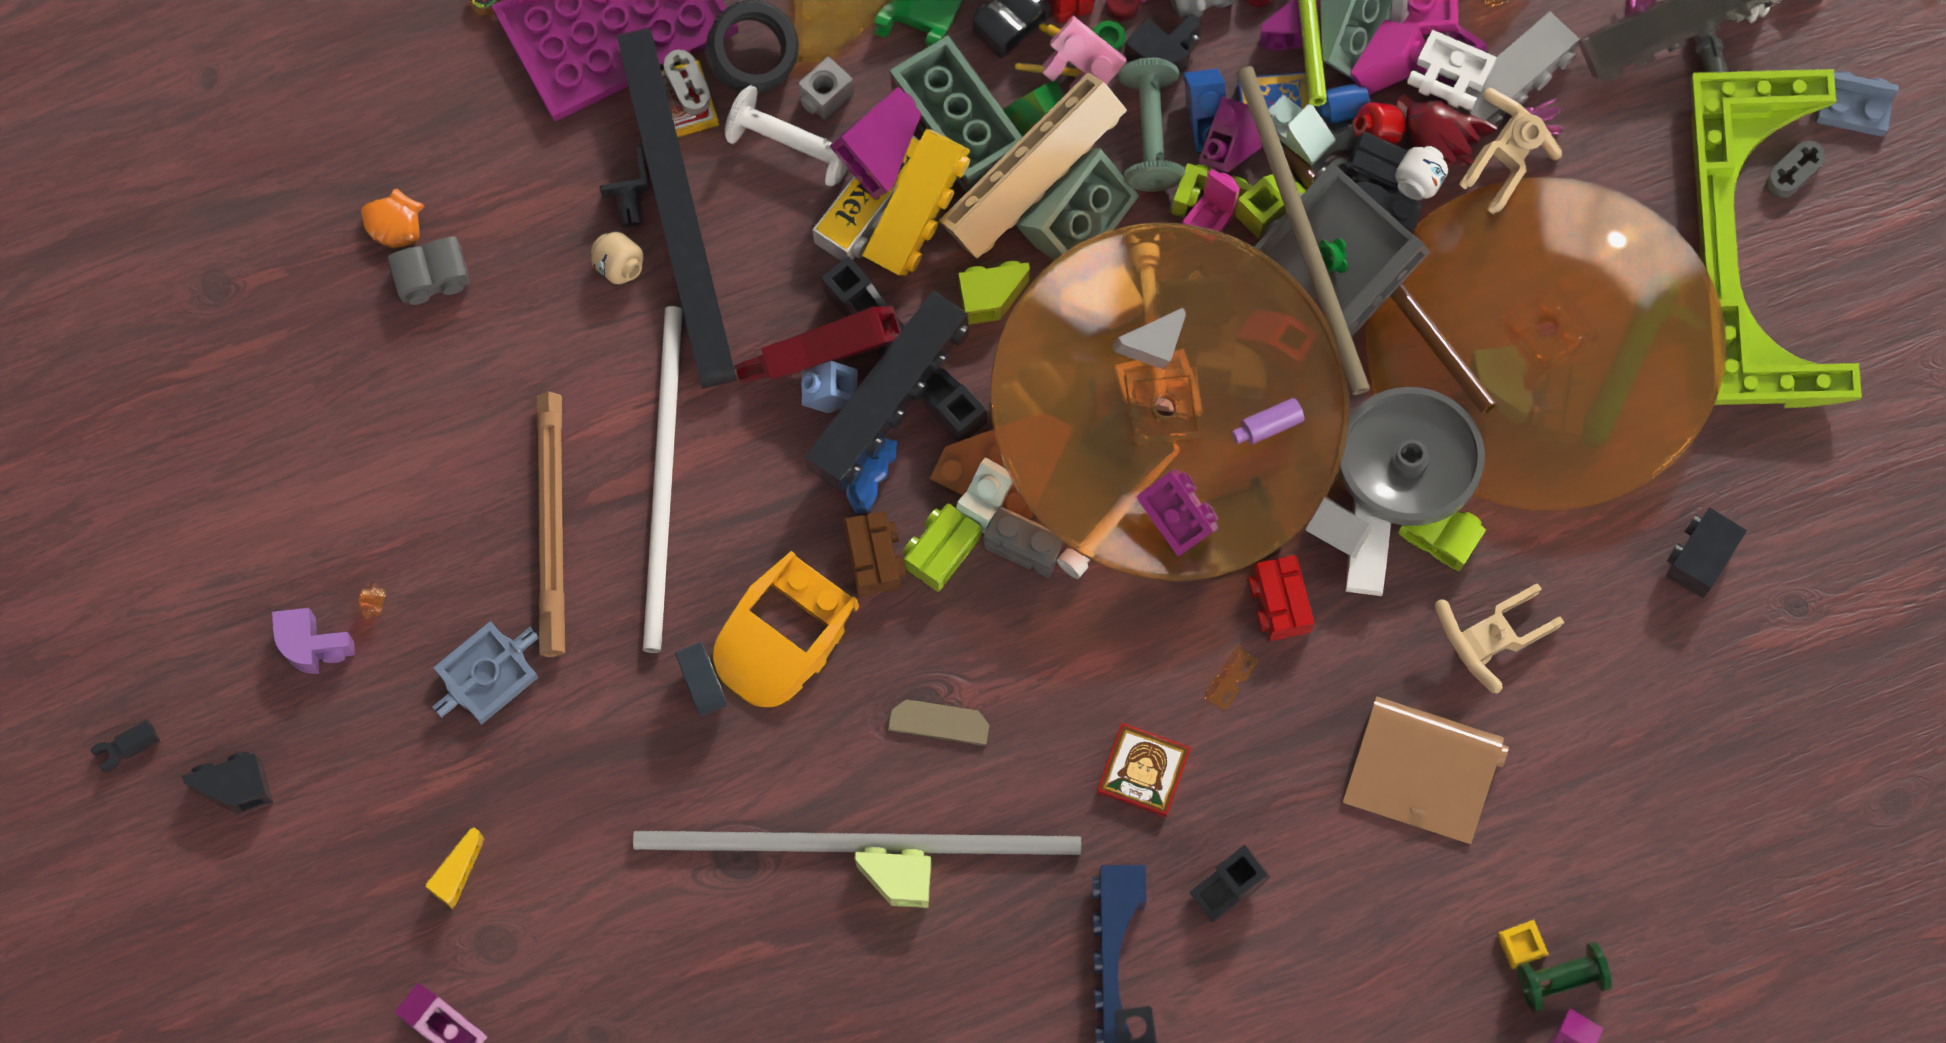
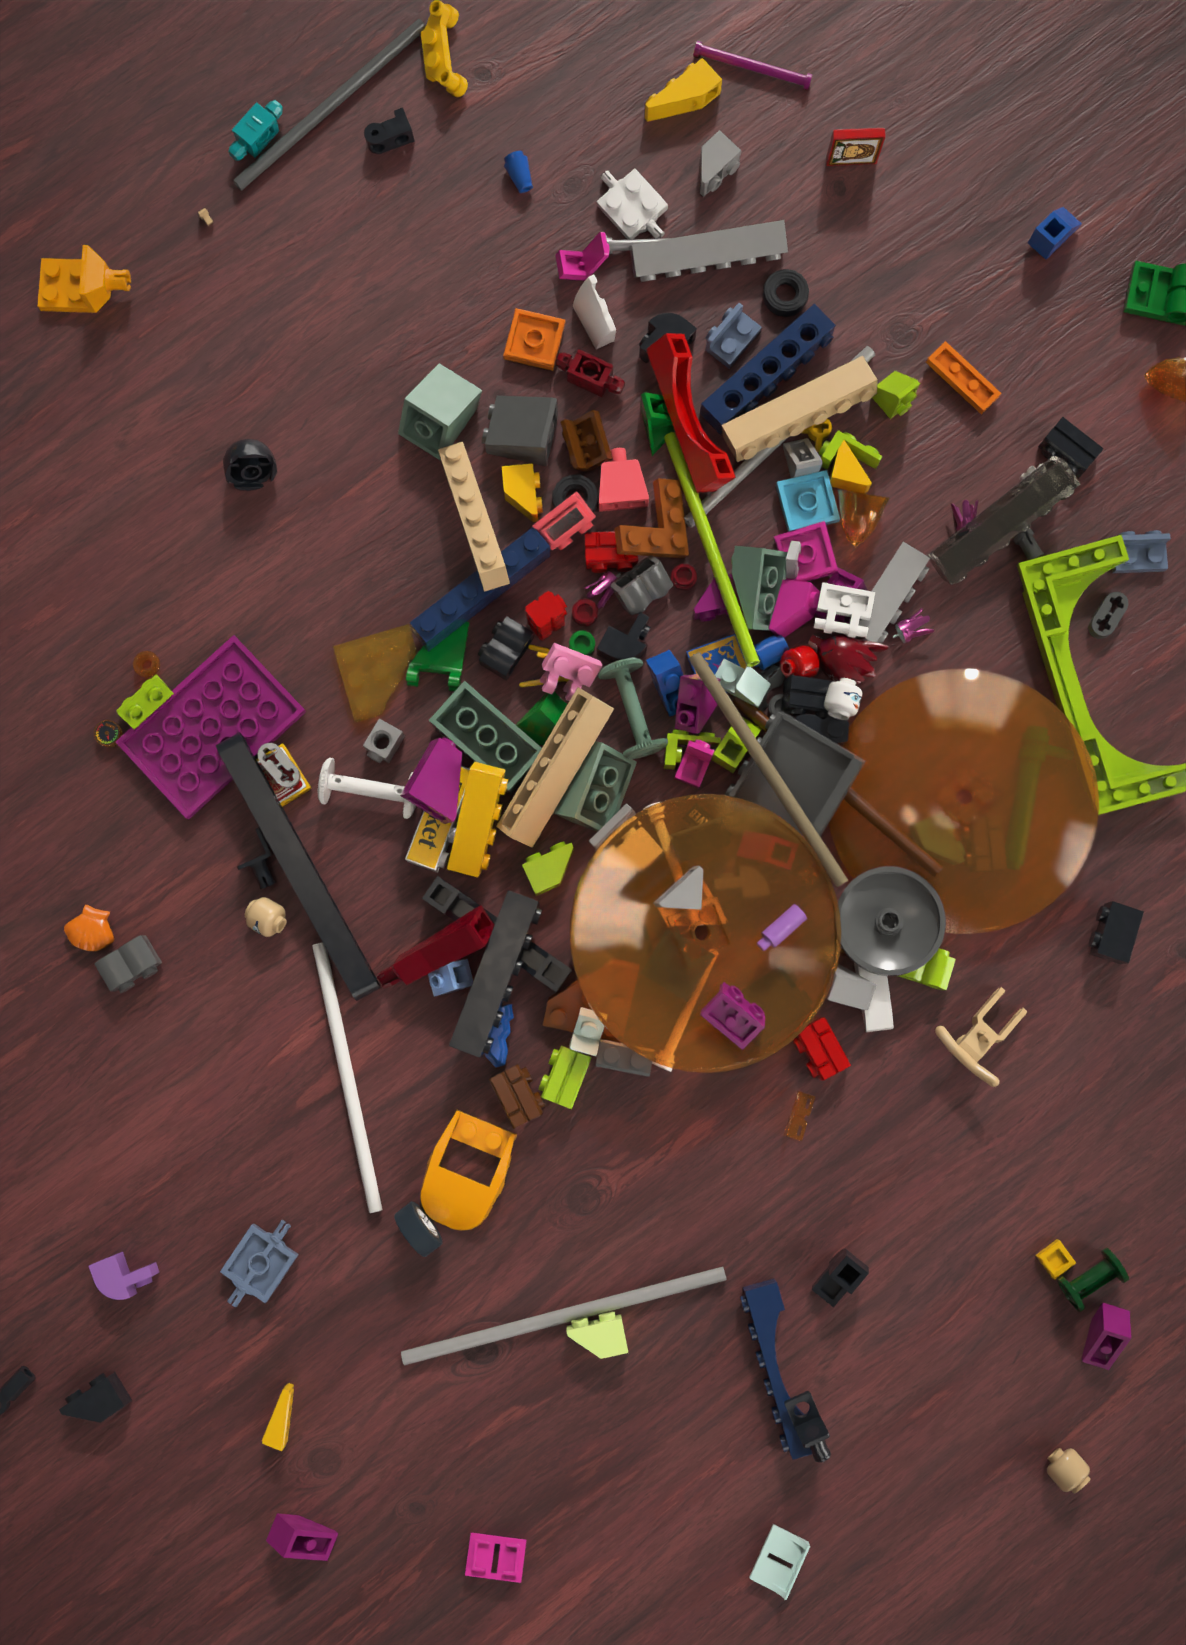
camera: 15 degrees left, 10 degrees up
(371, 600) = (159, 1231): clear orange plate -> none
(550, 526) = (274, 1135): medium nougat piece -> none
(771, 17) = (336, 702): black tyre -> none
(939, 722) = (598, 1207): dark tan piece -> none
(1144, 770) = (755, 1204): tile -> none
(1334, 255) = (794, 781): green plate -> none
(1424, 769) = (955, 1149): medium nougat door -> none
(1511, 147) = (904, 650): tan piece -> none

